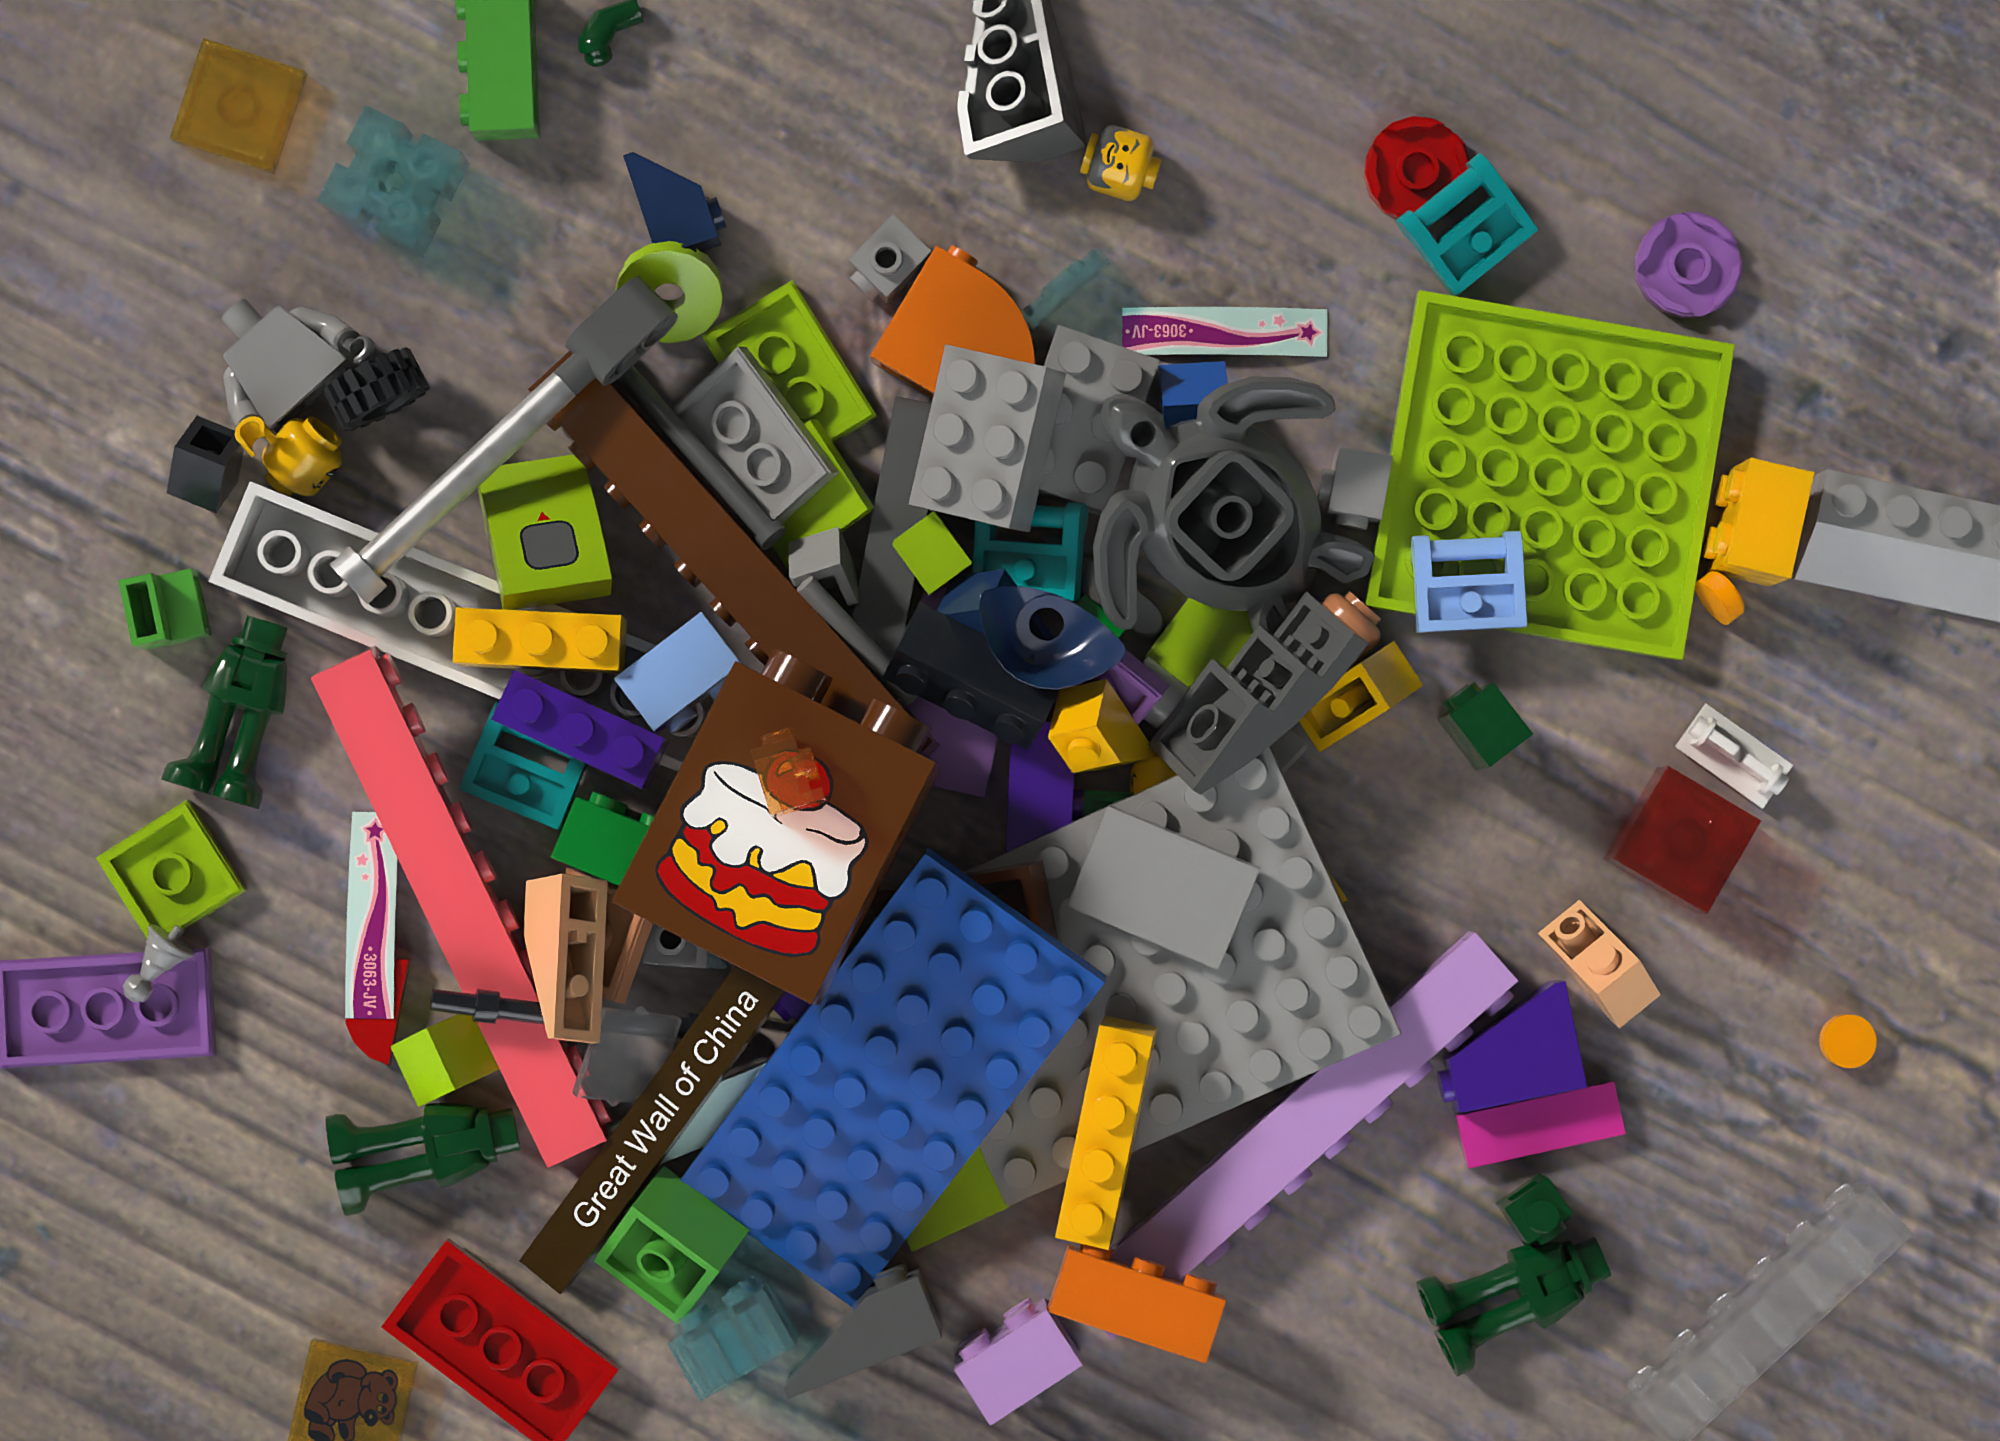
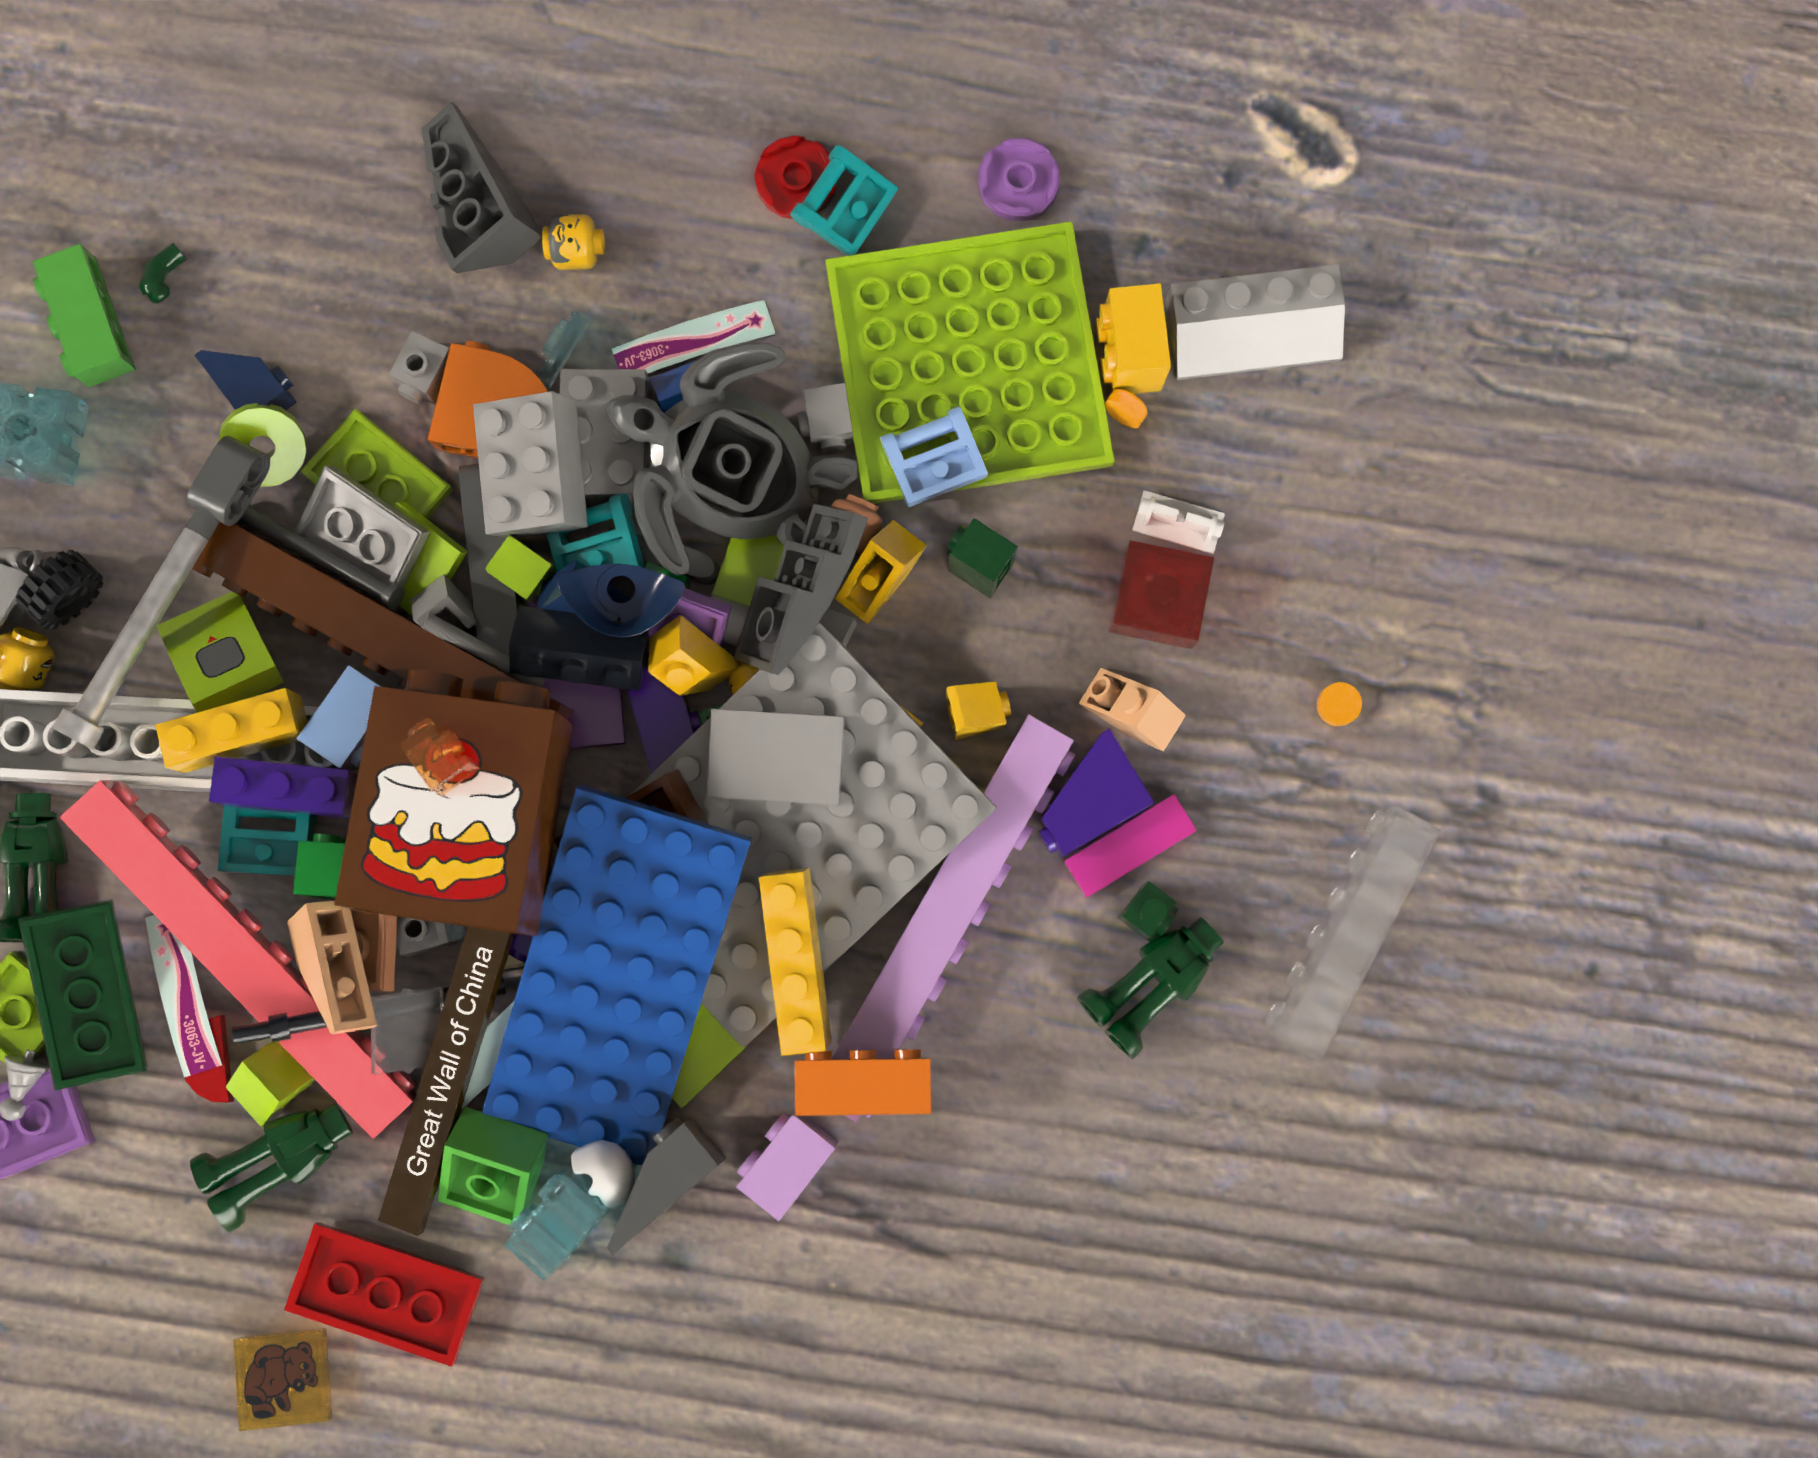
camera: 10 degrees left, 5 degrees down
(261, 883) = (83, 994): none -> dark green tile
(812, 1297) = (610, 1170): none -> white hair
(1415, 903) = (976, 709): none -> yellow slope

